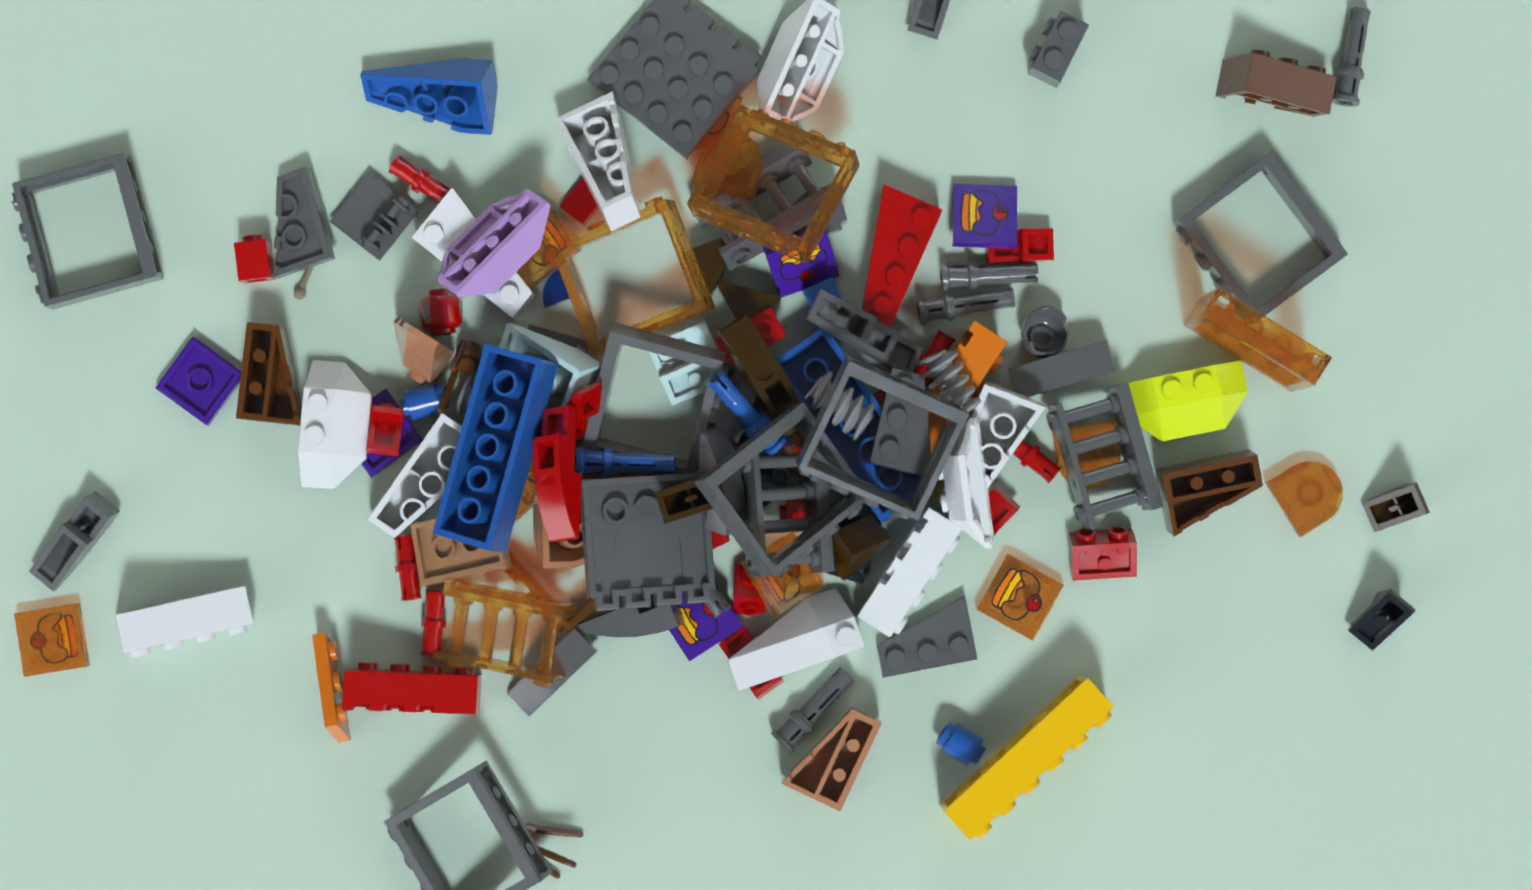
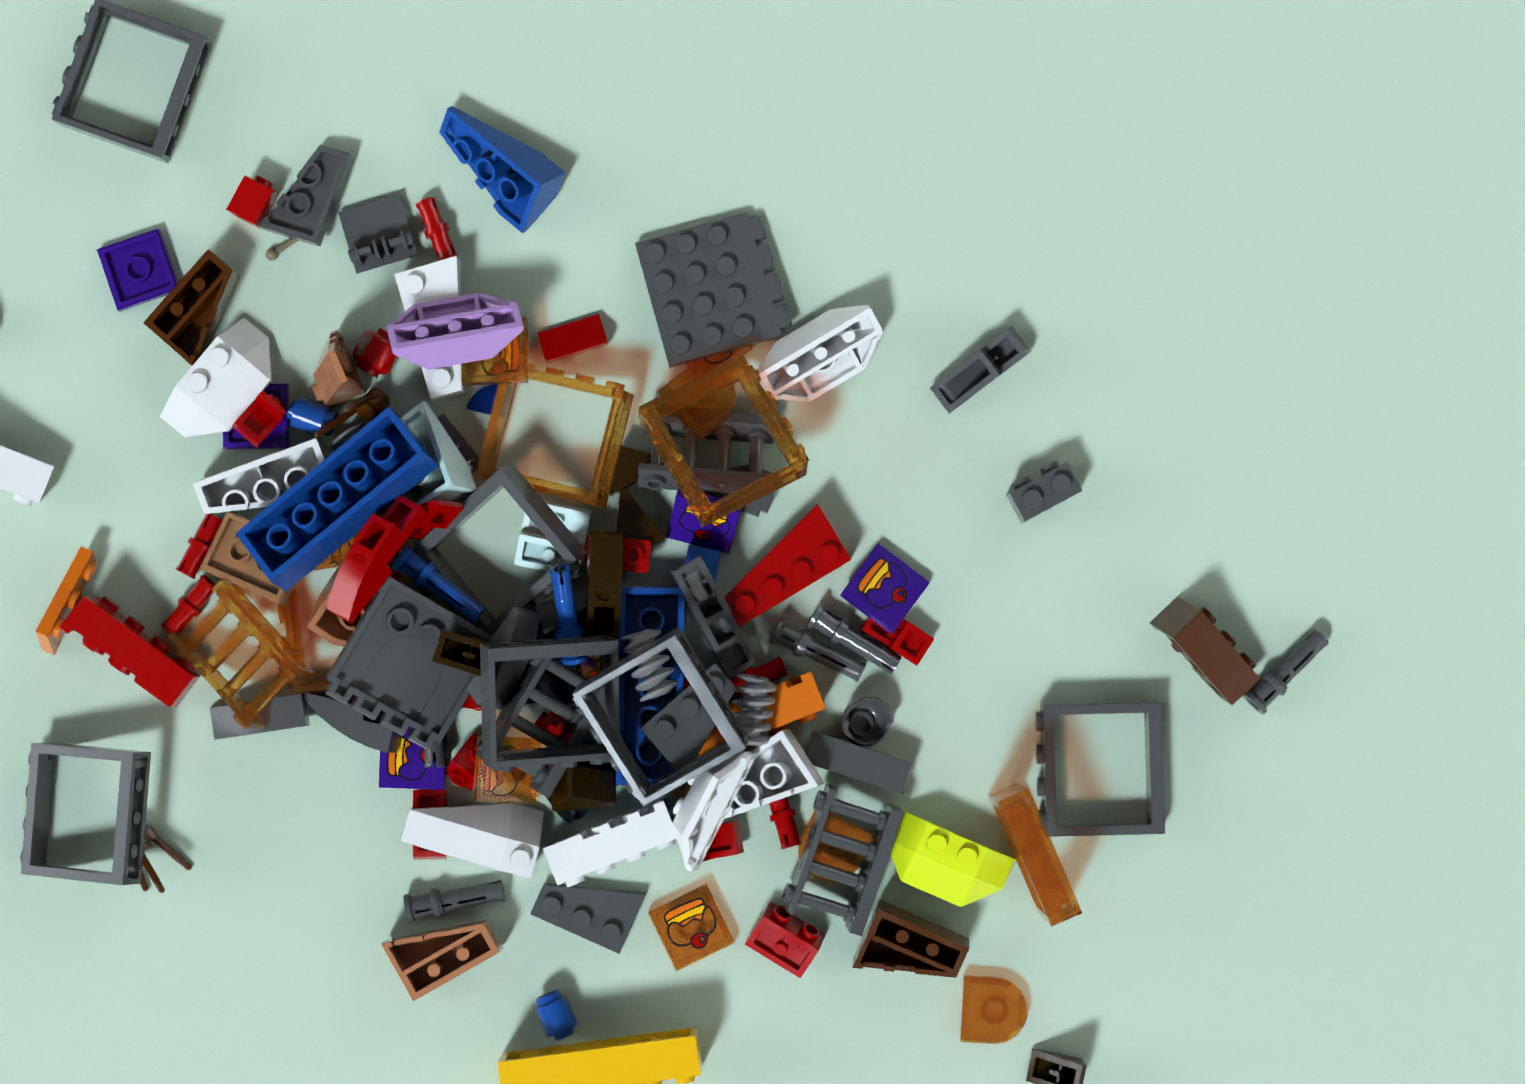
camera: 30 degrees right, 0 degrees up
(600, 151) = (600, 313): white wedge -> none

